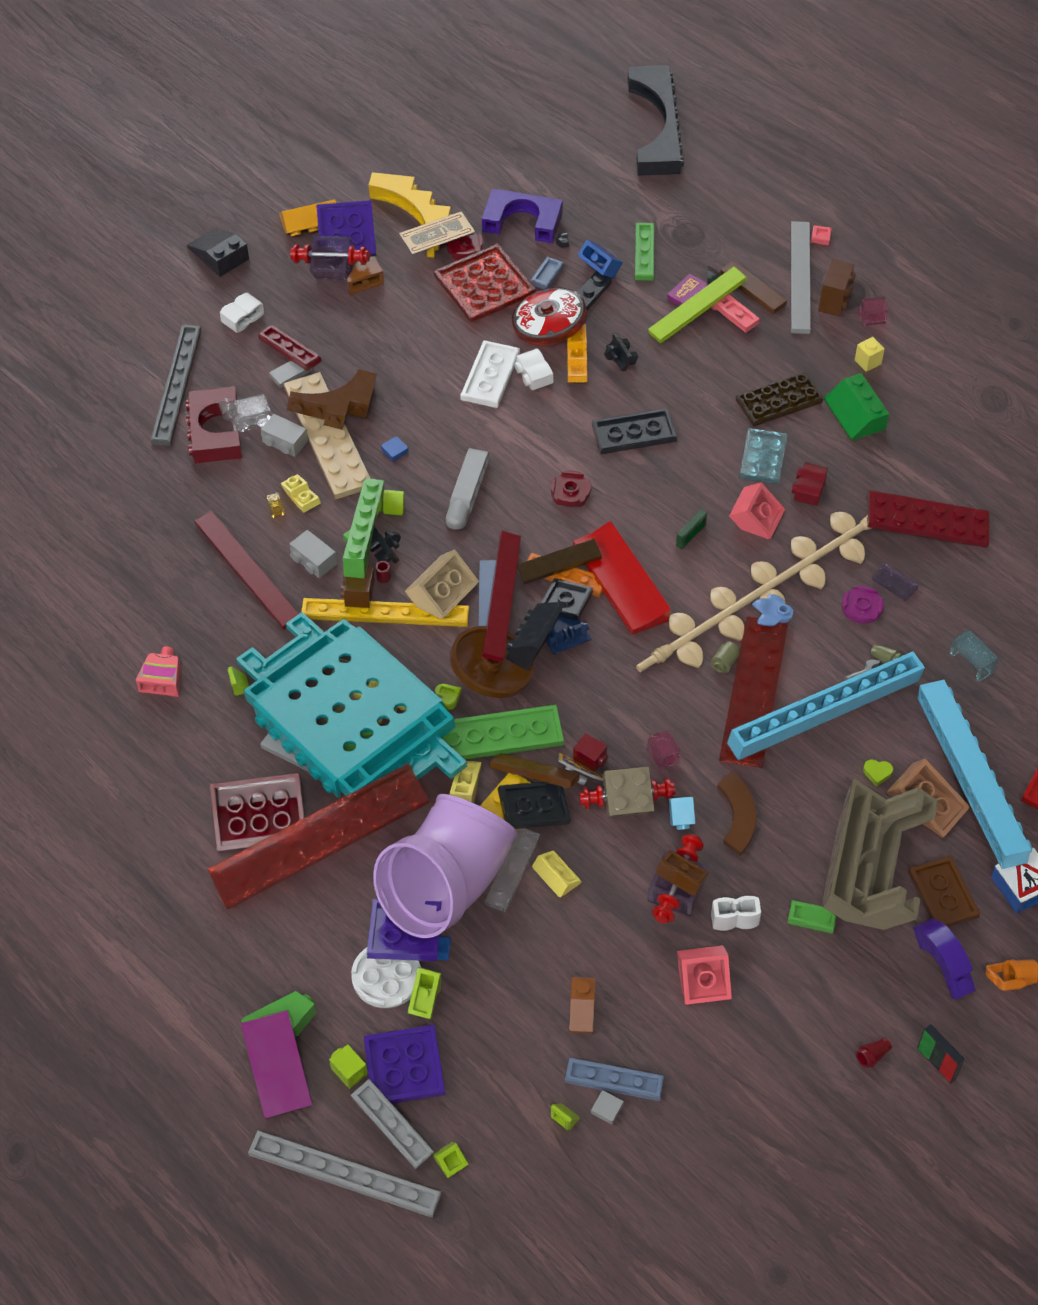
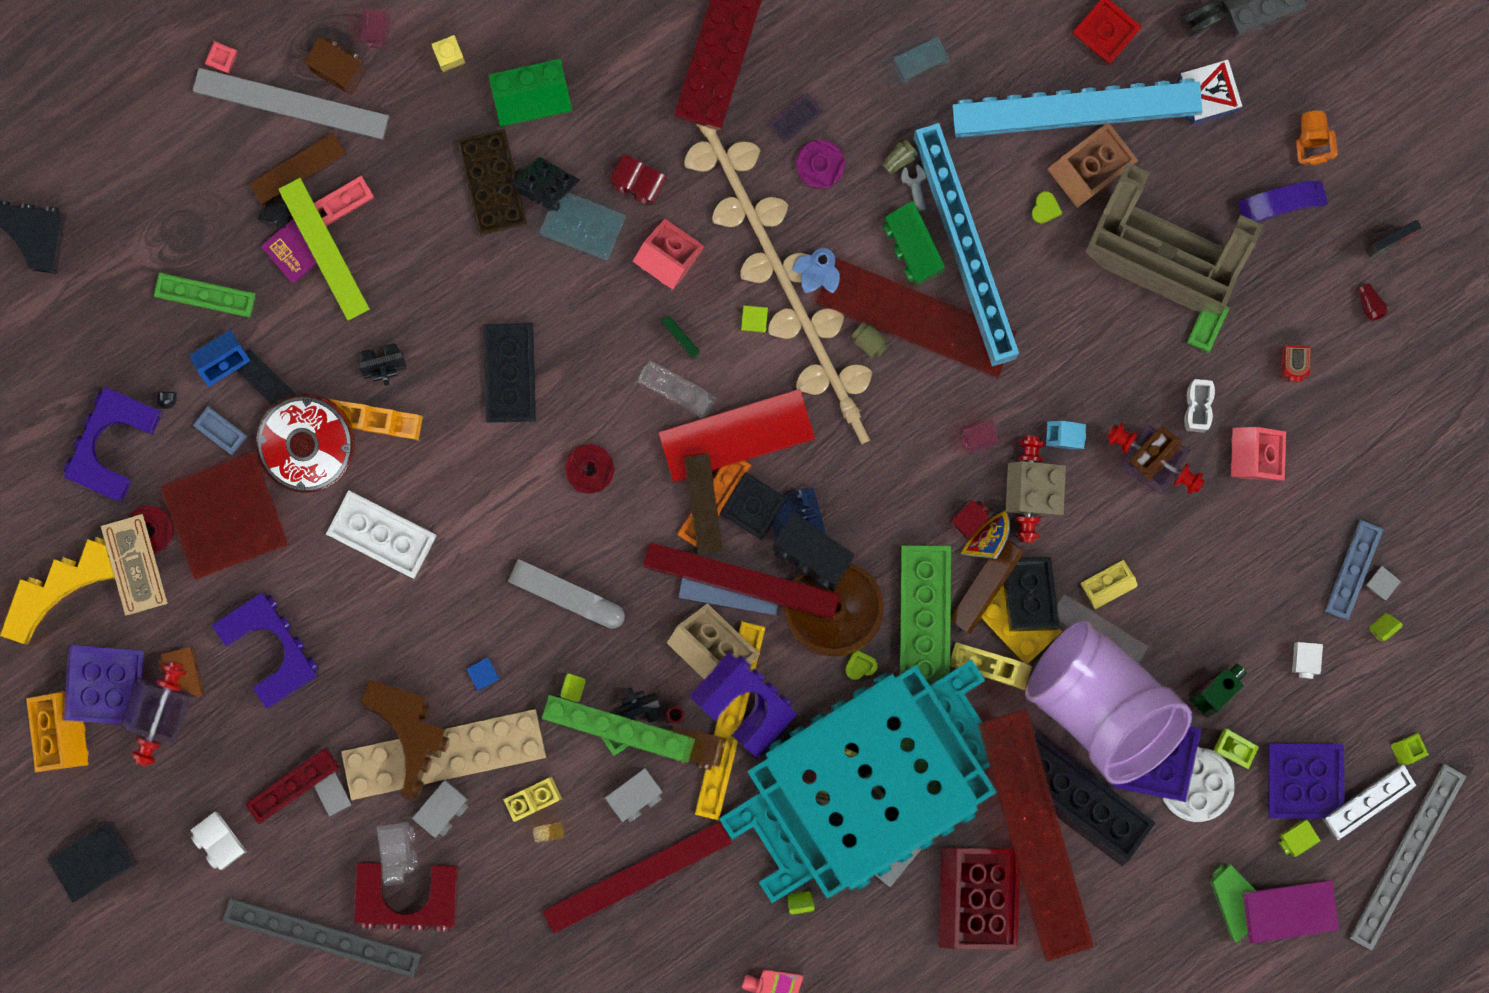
camera: 85 degrees left, 30 degrees up
(352, 885) = (1092, 806): none -> black arch
(380, 336) = (296, 668): none -> dark purple arch
(419, 583) = (729, 681): none -> dark purple arch
(476, 970) = (1213, 695): none -> dark green torso
(520, 1046) = (1307, 659): none -> white brick
(534, 369) = (390, 479): white brick -> none
(582, 1005) = (1272, 587): dark orange slope -> none
(647, 534) = (677, 389): none -> clear slope
(720, 578) = (754, 319): none -> lime tile
(743, 812) = (1070, 367): reddish brown tile -> none
(788, 423) = (545, 183): none -> black hinge
(798, 992) = (1296, 363): none -> brick
(817, 673) = (913, 244): none -> green slope
(944, 892) = (1207, 180): reddish brown plate -> none

